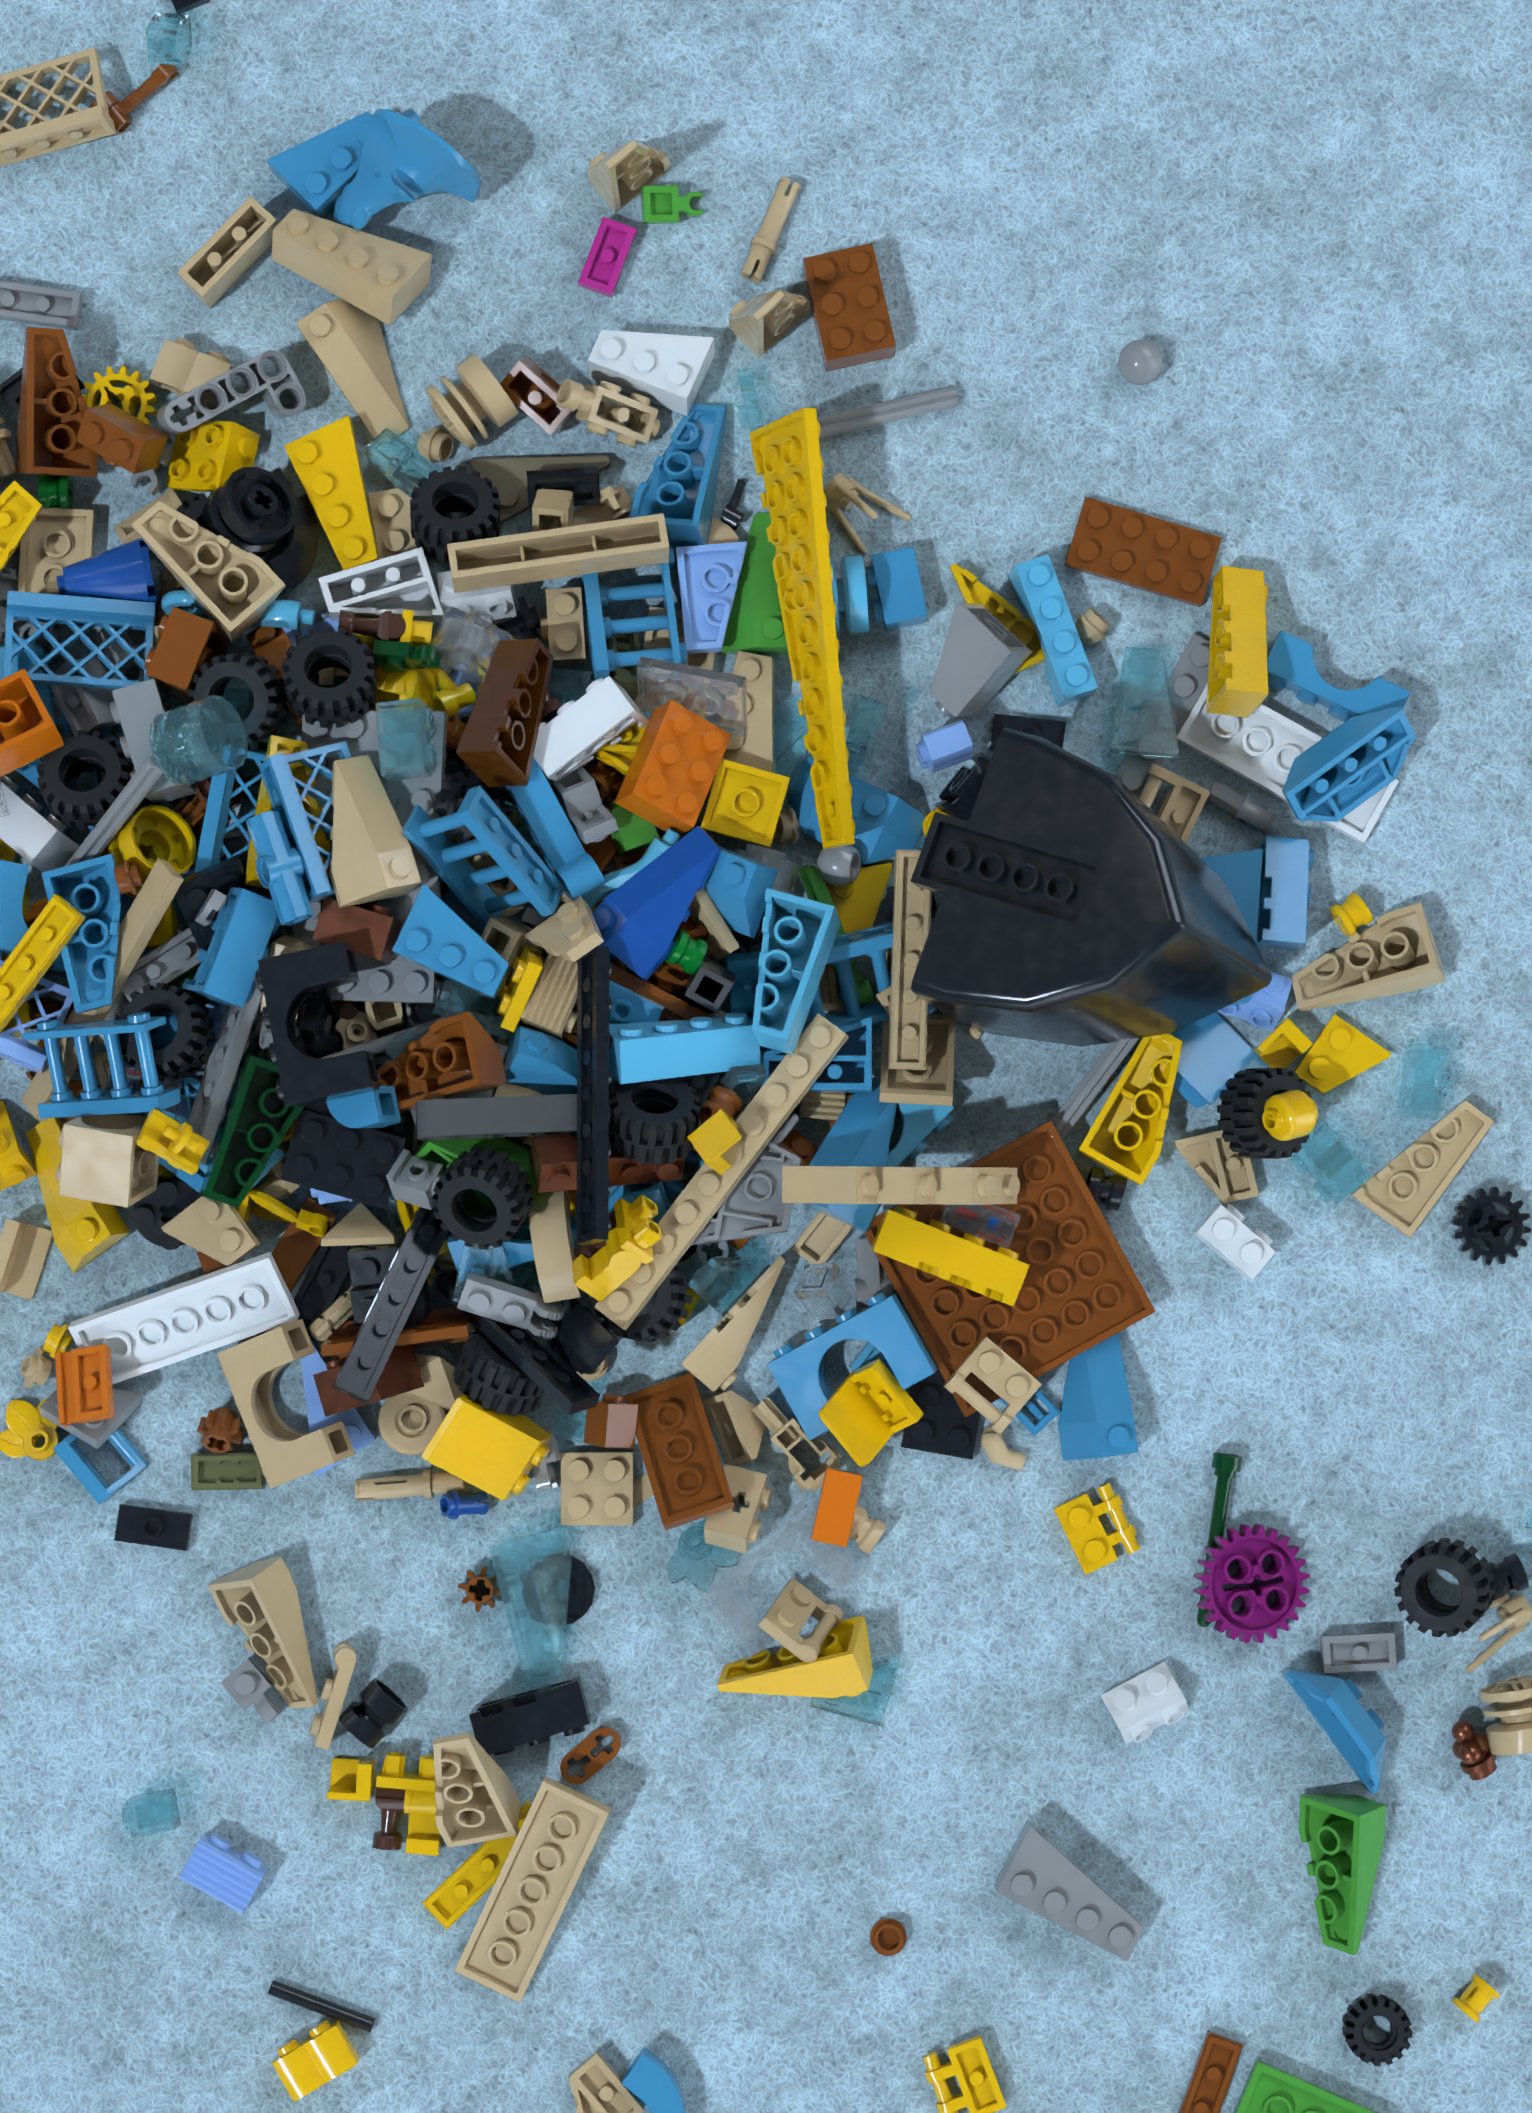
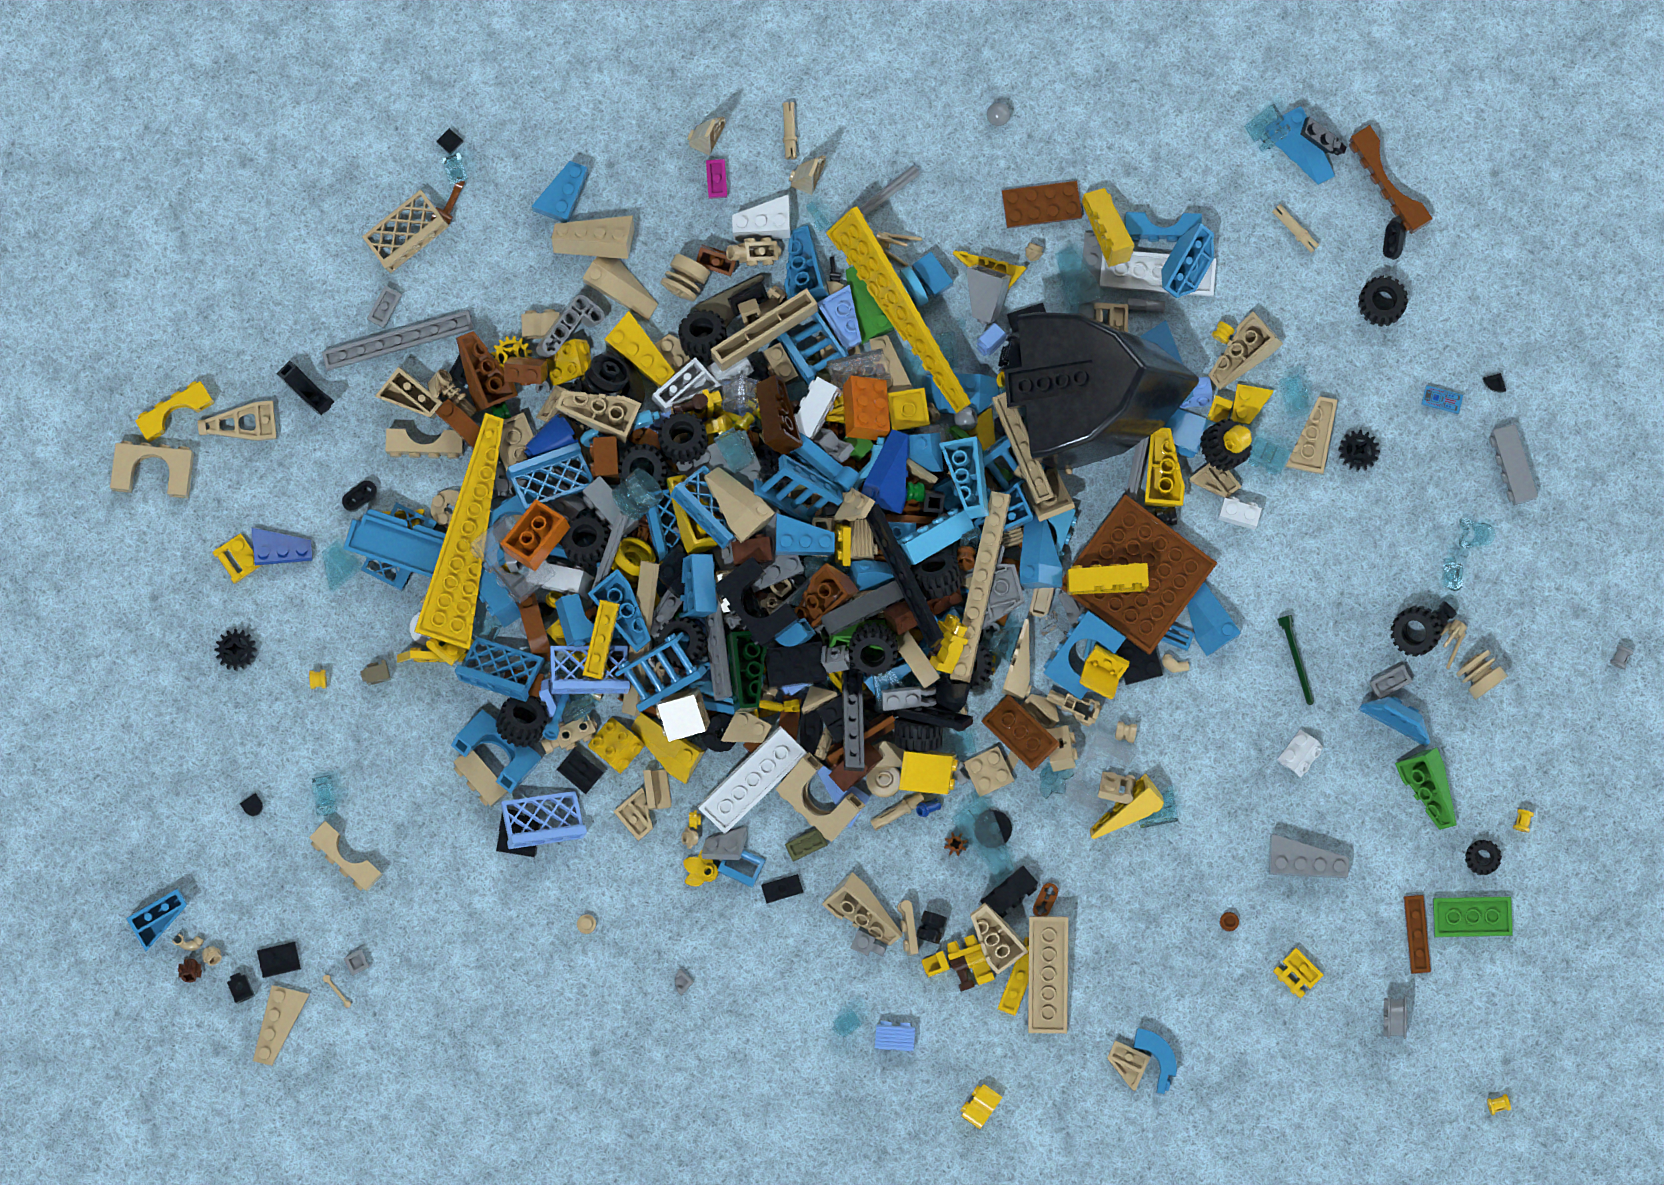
camera: 25 degrees left, 5 degrees down
(84, 1385) = (719, 831): orange plate -> none
(128, 877) = (631, 576): dark orange plate -> none
(172, 1141) = (713, 688): yellow hips -> none
(211, 905) = (677, 568): light grey tile -> none
(220, 1430) = (793, 826): dark orange gear -> none
(229, 252) = (532, 258): tan brick -> none
(279, 868) = (704, 536): dark azure piece -> none
(321, 2006) = (971, 1081): black bar -> none
(397, 461) = (659, 322): clear light blue slope -> none
(397, 655) = (710, 413): dark green plate -> none
(400, 165) = (598, 179): dark azure animal -> none
(435, 445) = (675, 306): tan plate -> none
(611, 1422) = (981, 734): dark orange brick -> none
(663, 204) = (732, 141): bright green plate -> none
(714, 1139) = (971, 570): yellow panel -> none
(836, 1507) = (1108, 724): orange tile -> none
(849, 307) = (845, 151): dark orange brick -> none
(899, 1185) = (1067, 553): tan arch -> none
(983, 1221) = (1113, 555): clear tile -> none
(1000, 1375) = (1158, 626): tan plate -> none
(1063, 652) = (1004, 248): medium azure arch -> none
(1087, 1534) = (1233, 685): yellow plate -> none
(1248, 1550) = (1315, 656): magenta gear -> none
(1284, 892) = (1186, 336): dark azure wedge -> none
(1473, 1751) = (1466, 703): copper piece -> none

